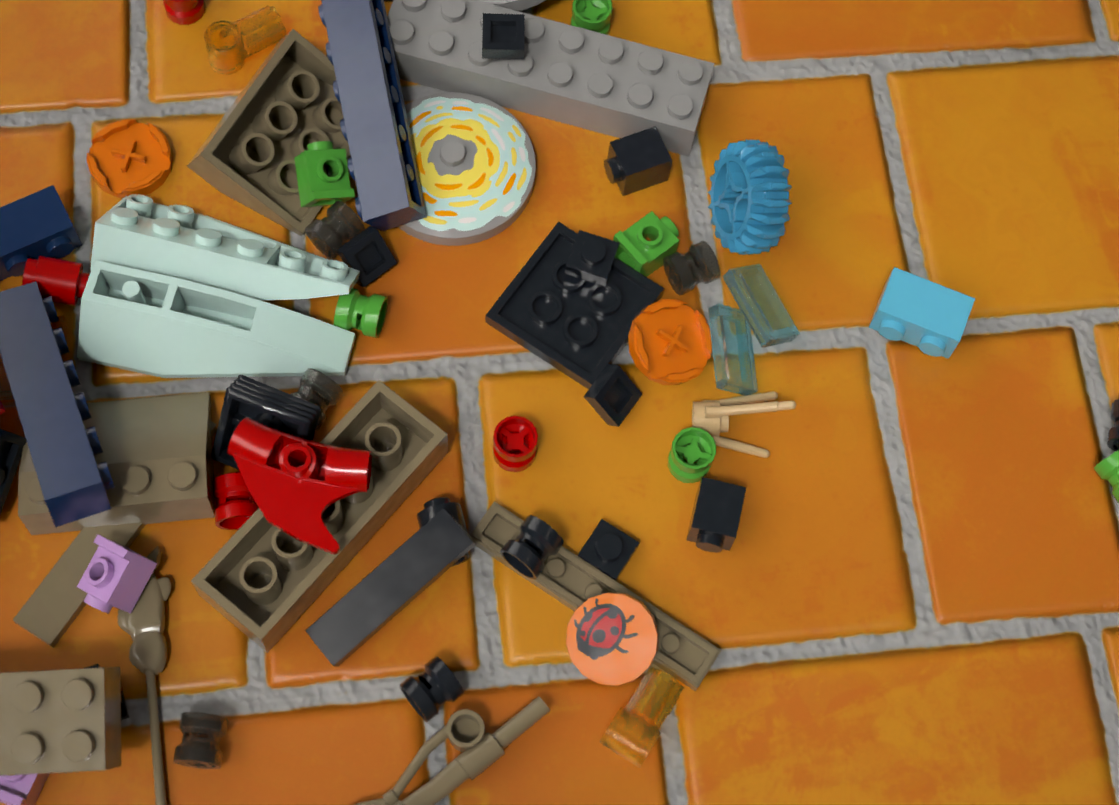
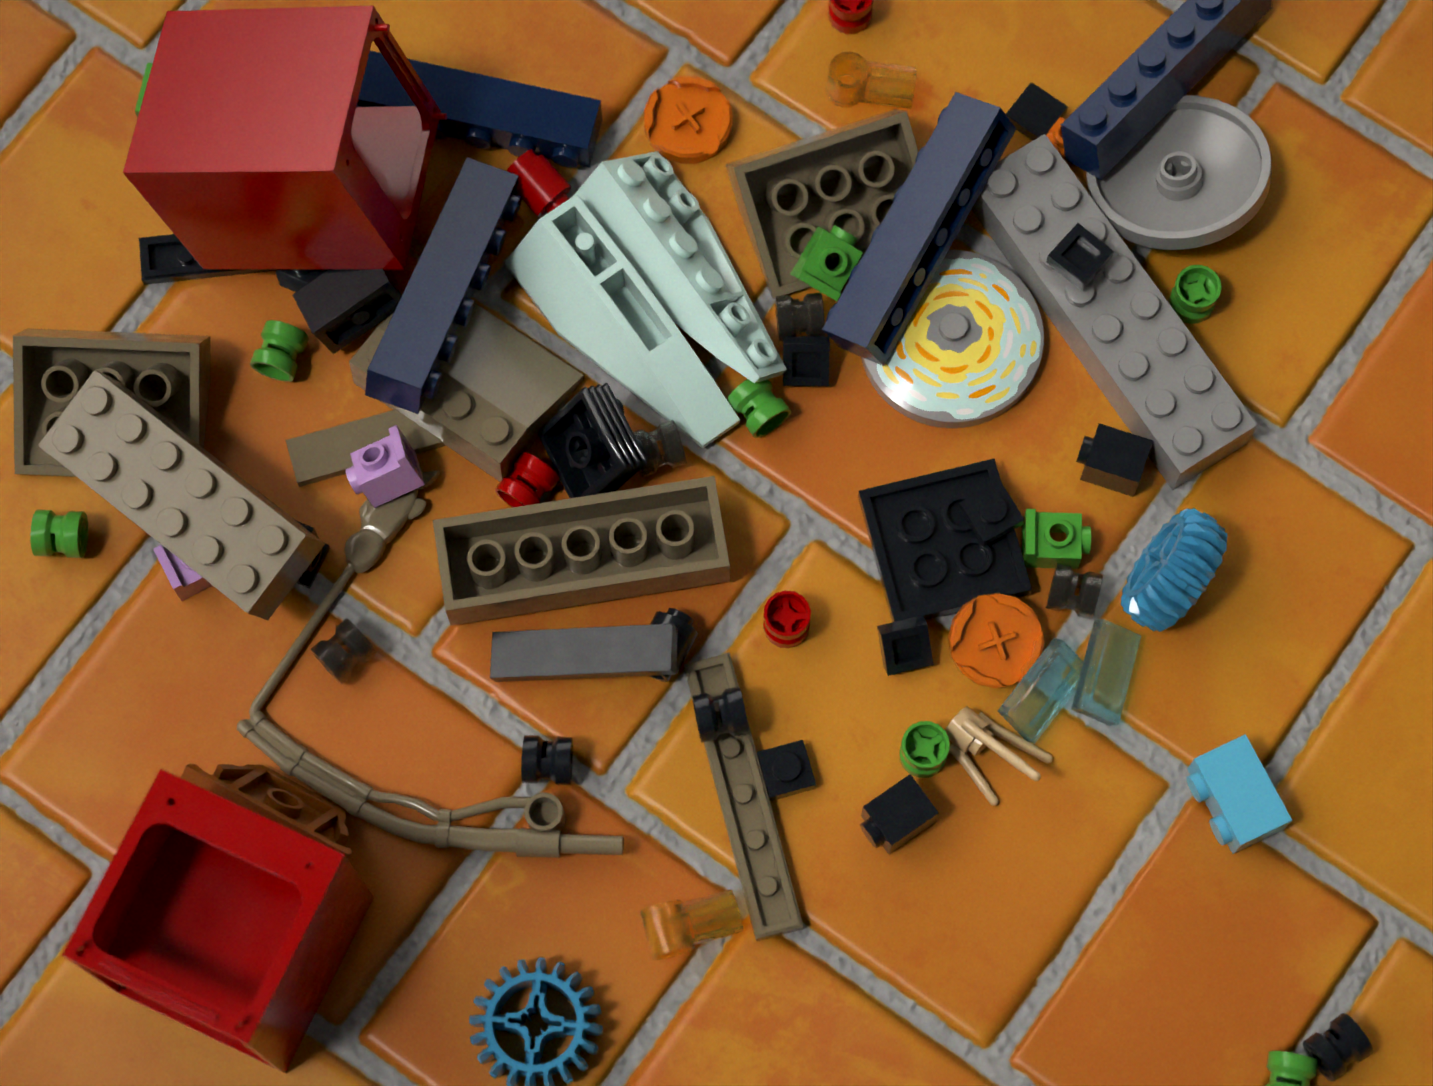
camera: 50 degrees right, 5 degrees up
(294, 495) = (563, 520): red pin -> none
(612, 638) = (722, 841): tile -> none

